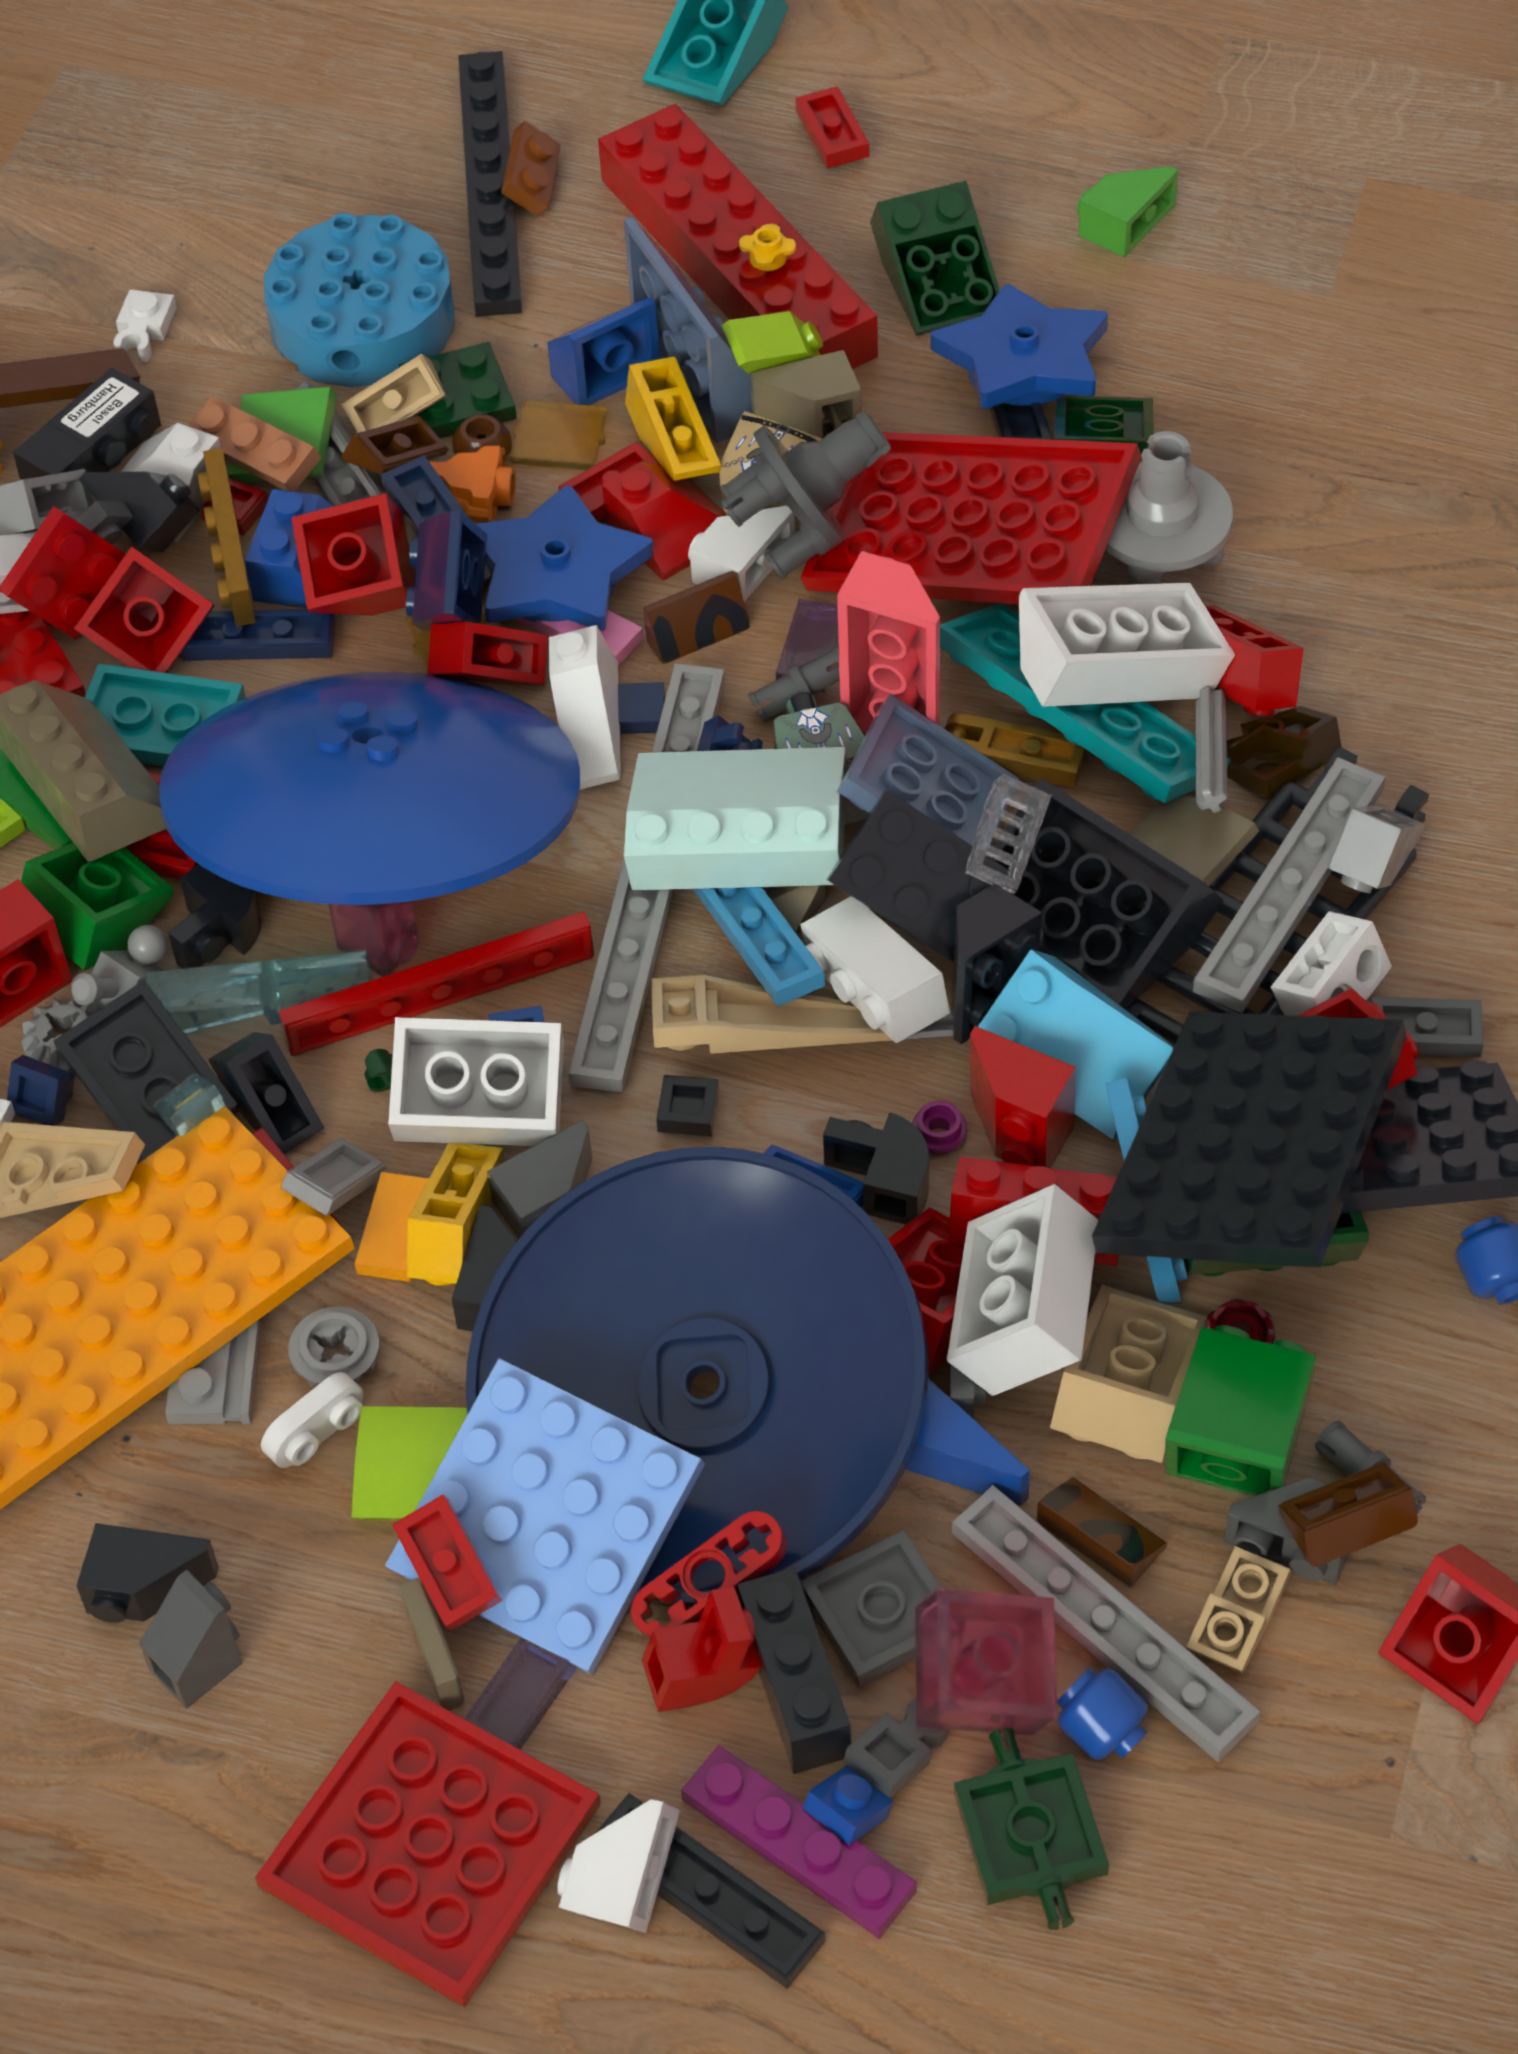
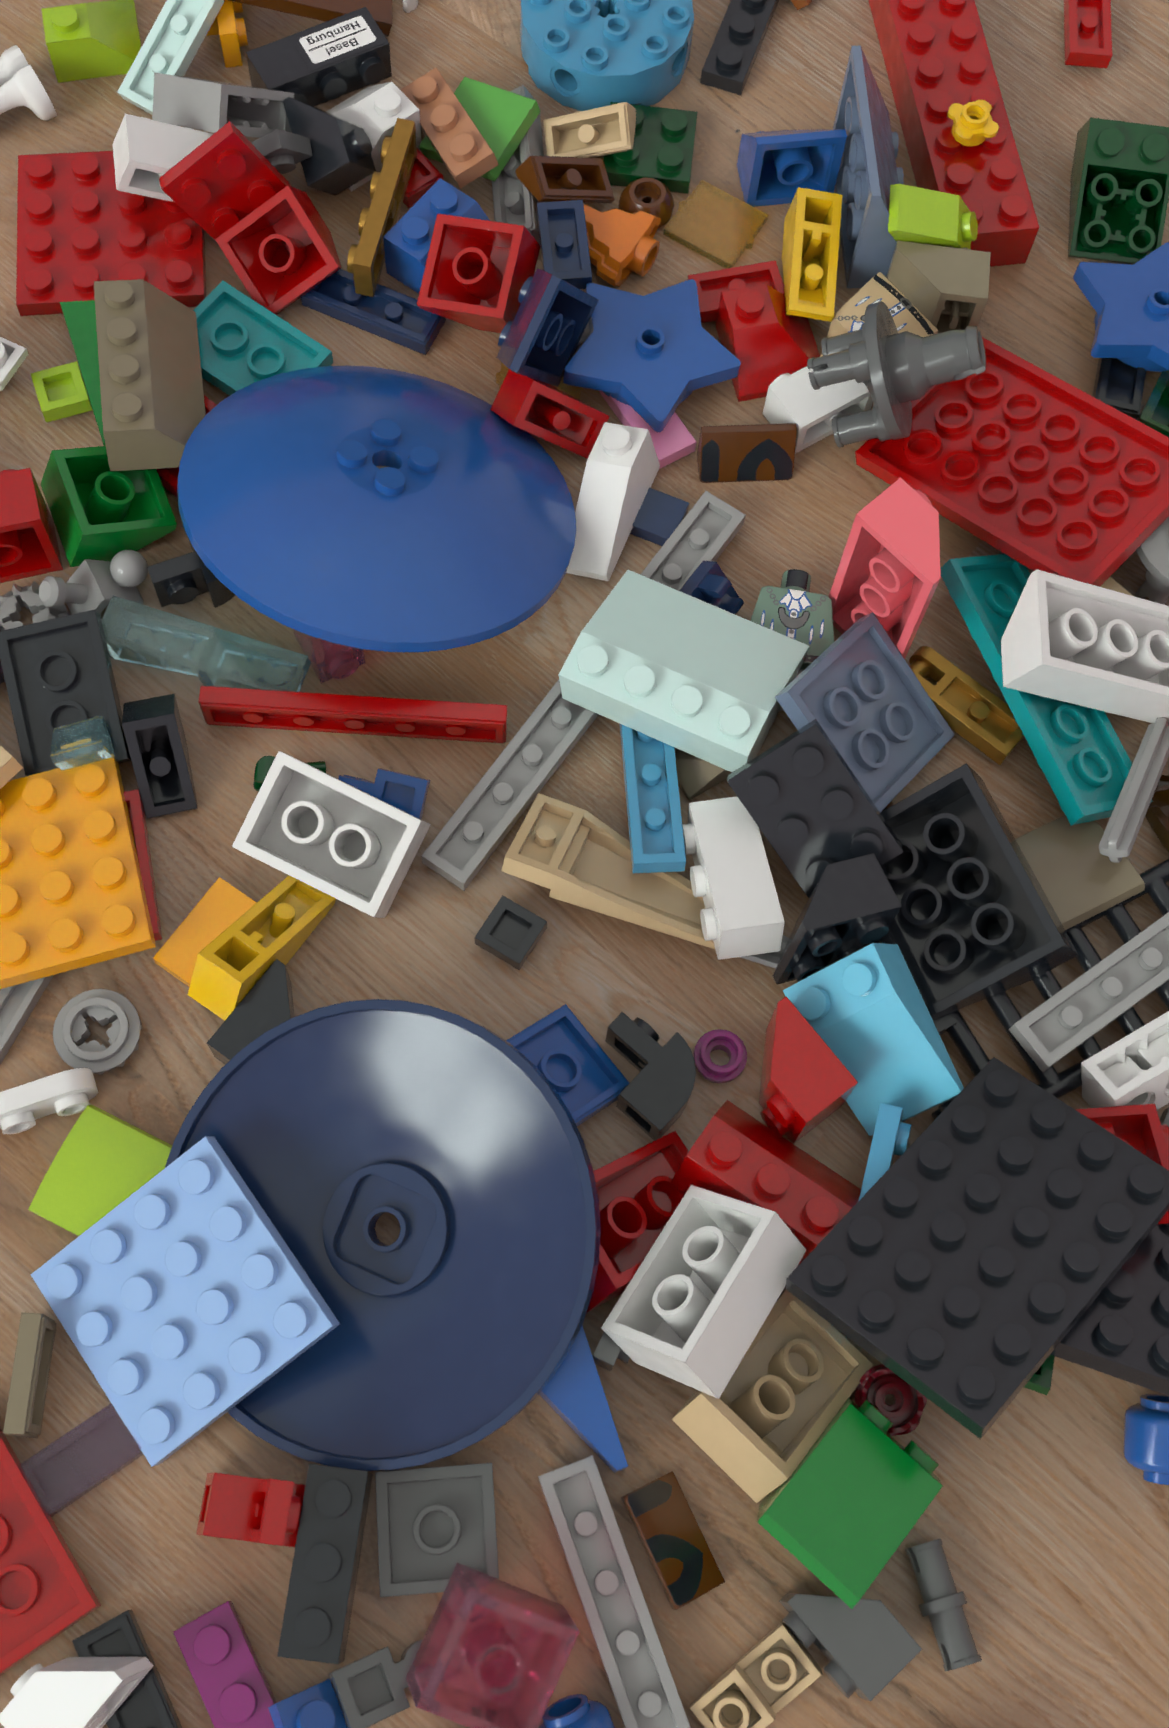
camera: 15 degrees right, 15 degrees up
(333, 1176) = (169, 868): light grey tile -> none
(447, 1562) = (69, 1315): red plate -> none
(540, 1176) = (349, 957): dark grey slope -> none
(733, 1535) = (251, 1426): red beam -> none
(805, 679) = (804, 556): dark grey pin -> none
(810, 635) = (828, 526): tile -> none
(1021, 796) = (906, 782): clear slope -> none
(1350, 1514) = (898, 1662): reddish brown slope -> none

